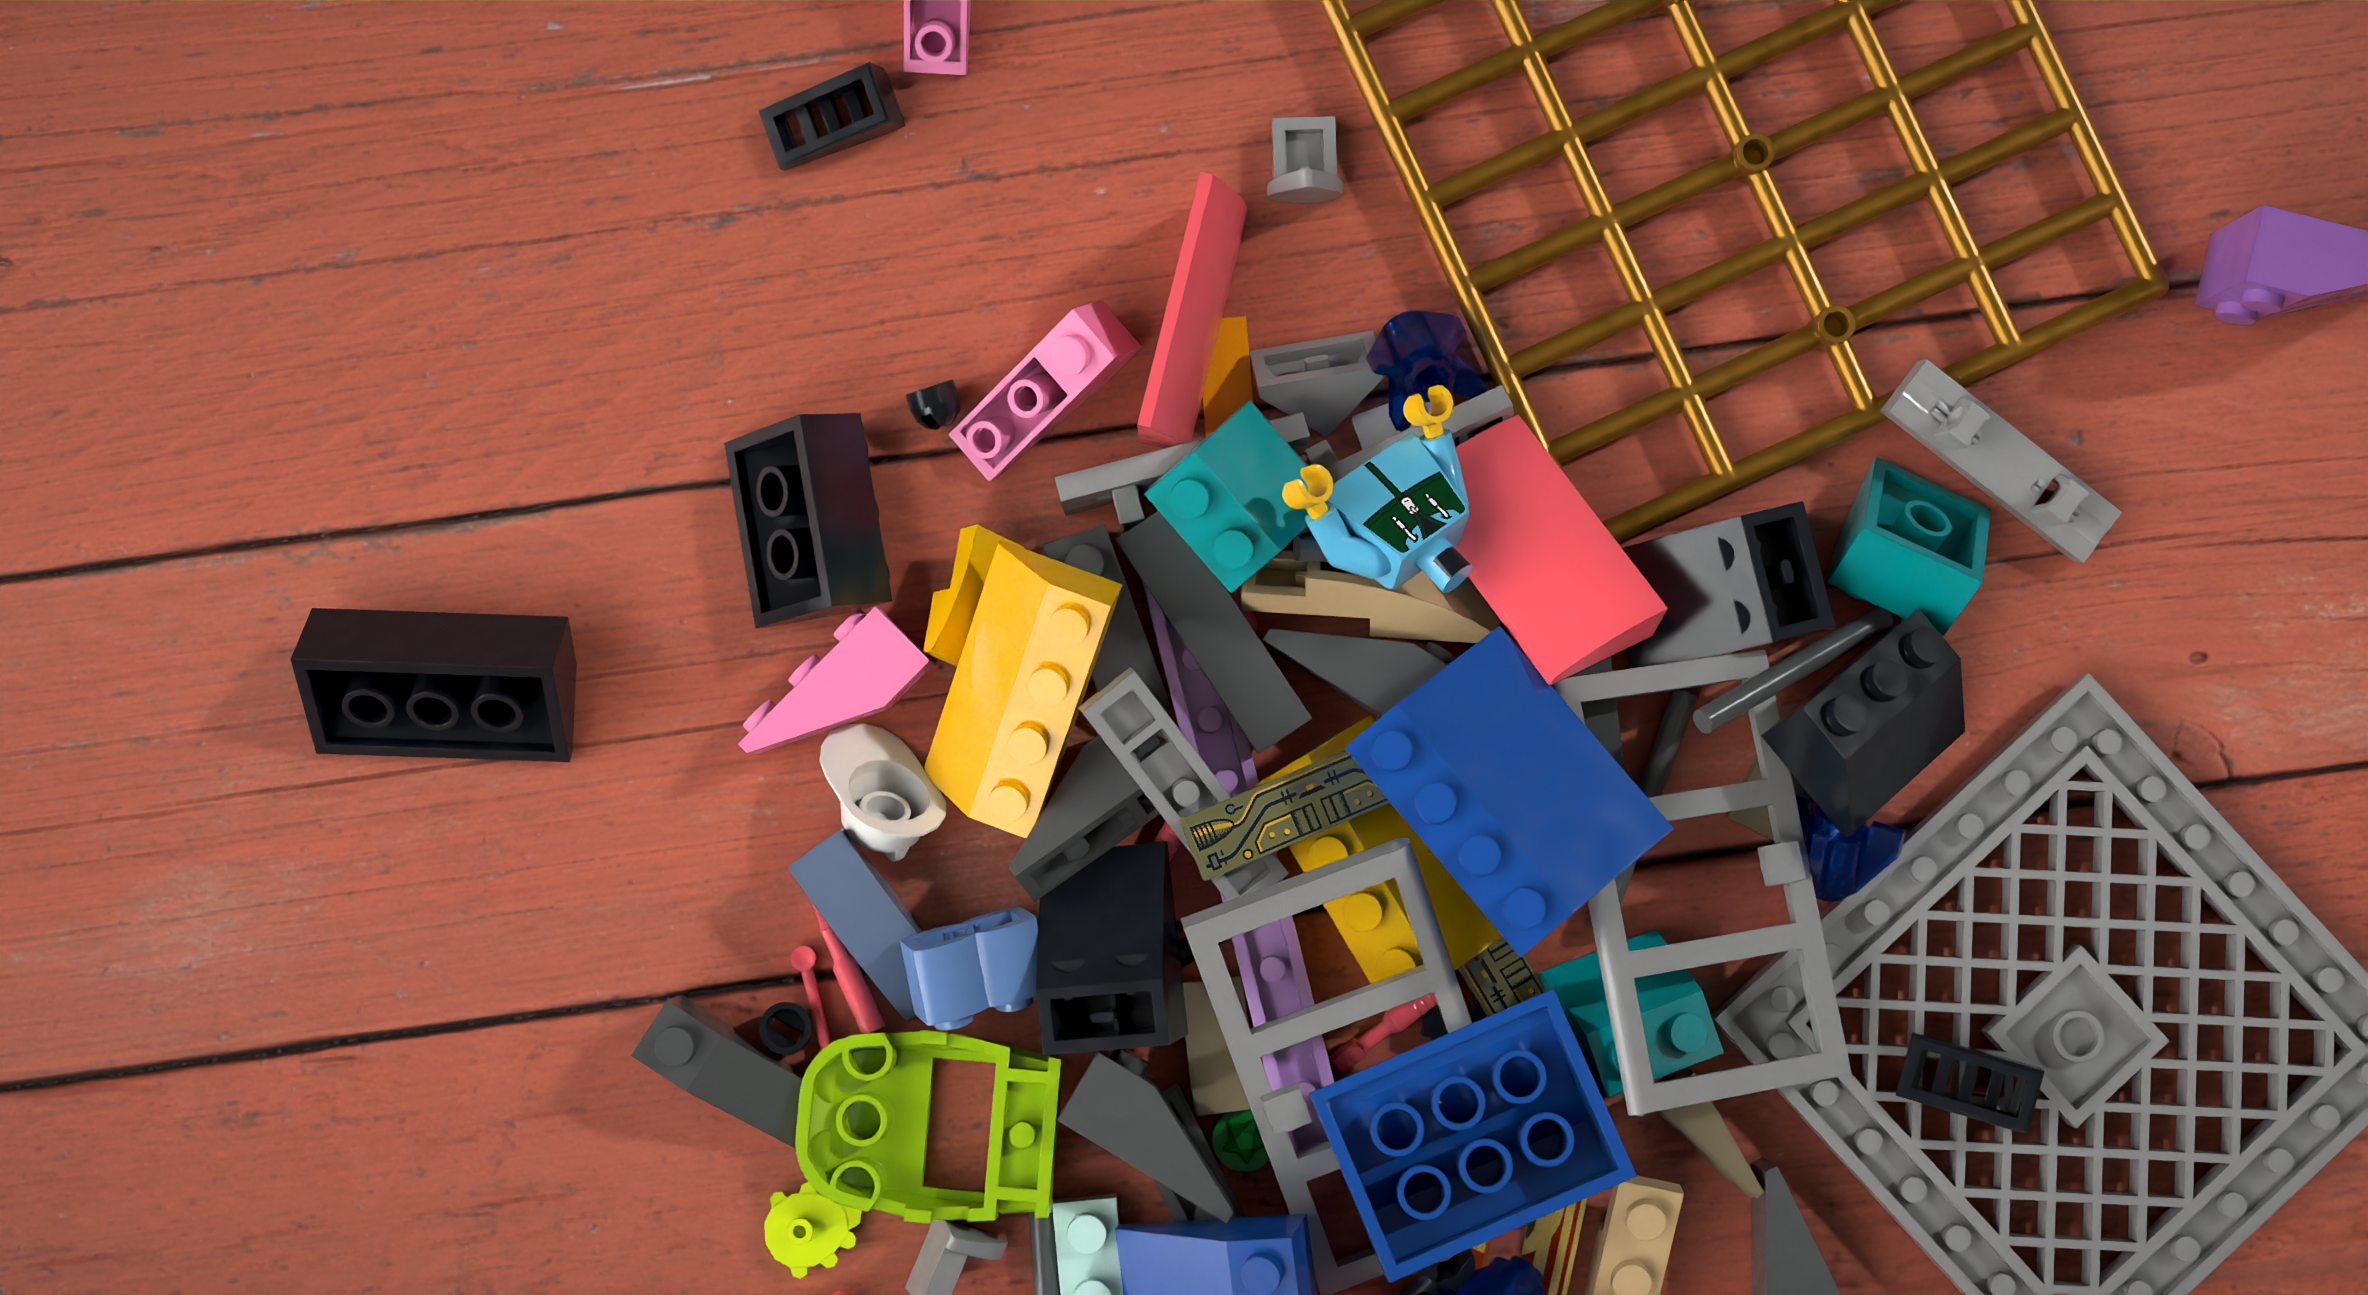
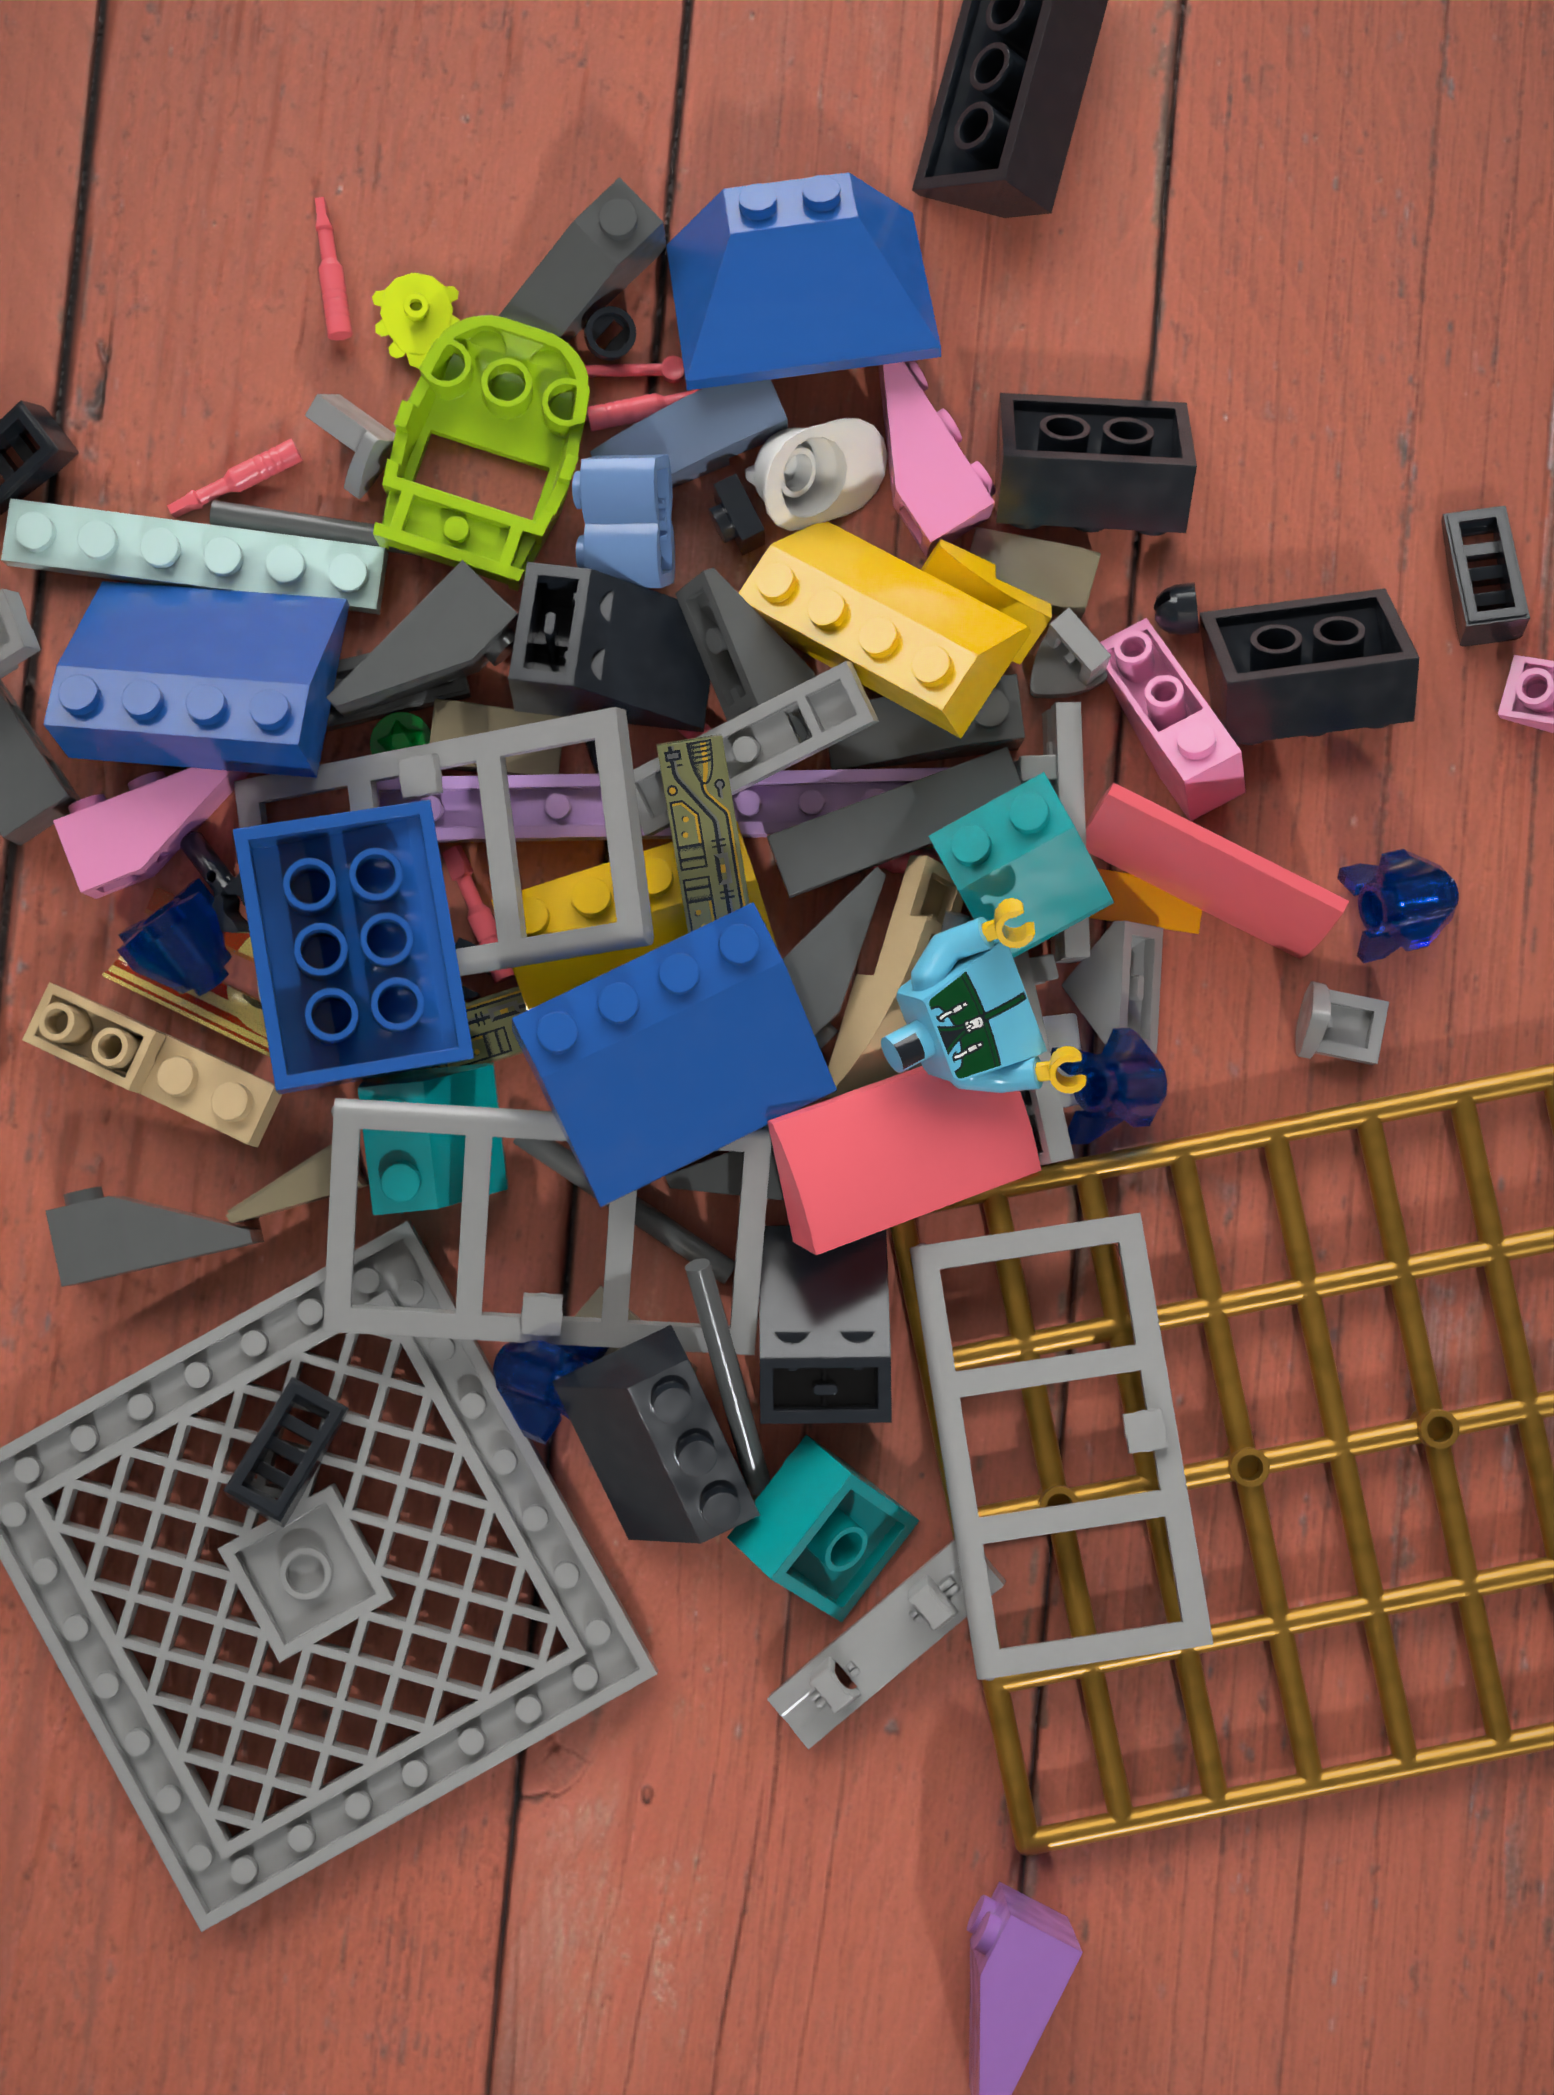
camera: 100 degrees right, 0 degrees up
(698, 849) = (799, 283): none -> blue slope
(925, 549) = (1040, 567): none -> dark tan slope
(942, 860) = (736, 516): none -> black plate
(962, 265) = (1309, 666): none -> black slope
(1011, 502) = (1068, 660): none -> light grey tile
(1177, 126) = (1400, 902): none -> clear blue brick
(1751, 257) = (1143, 1430): none -> light grey door

